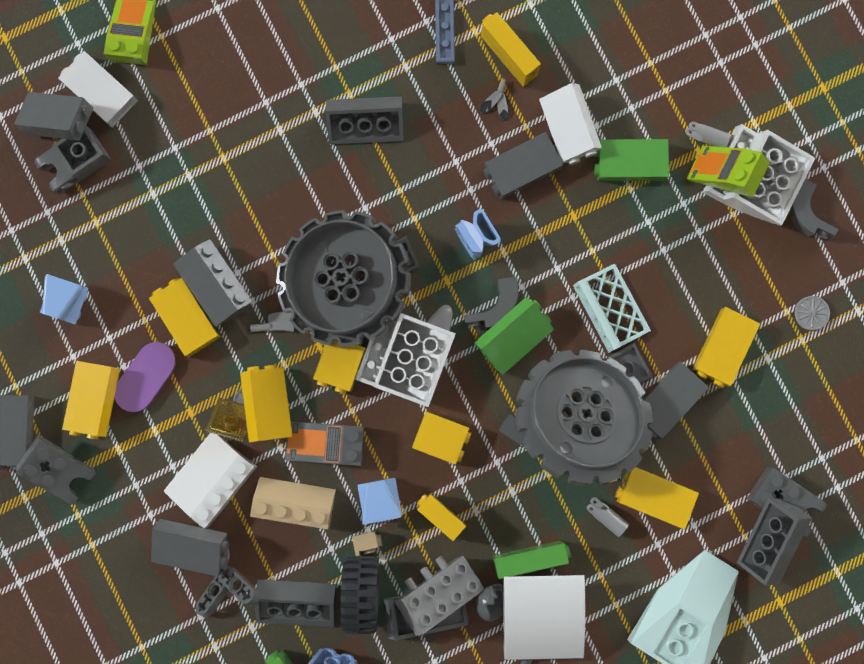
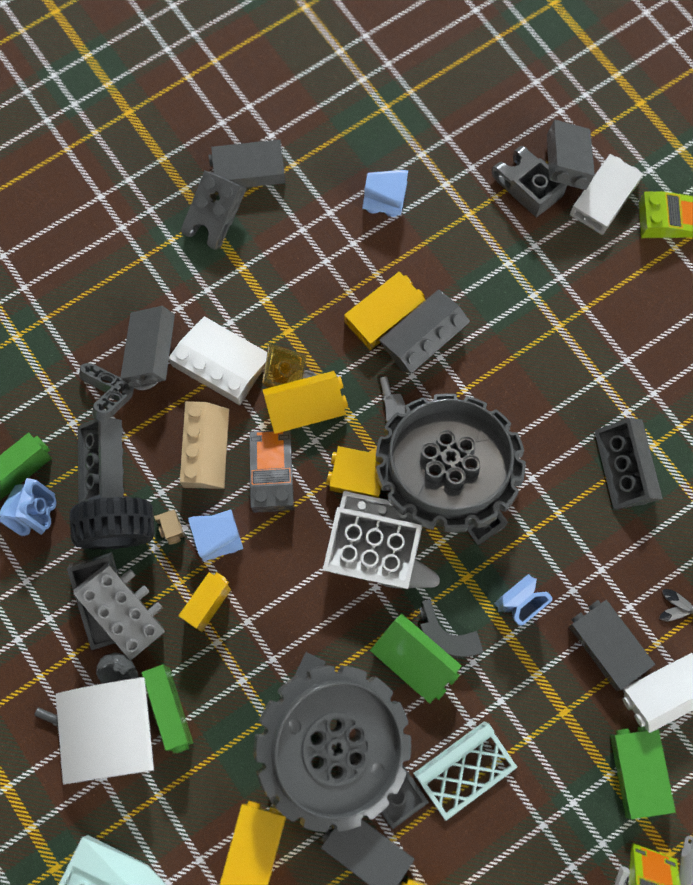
camera: 80 degrees right, 10 degrees down
(91, 400) = (287, 233): yellow brick -> none
(145, 377) = (318, 282): medium lavender tile -> none
(441, 438) = (291, 592): yellow brick -> none
(607, 517) = (224, 794): light grey piece -> none

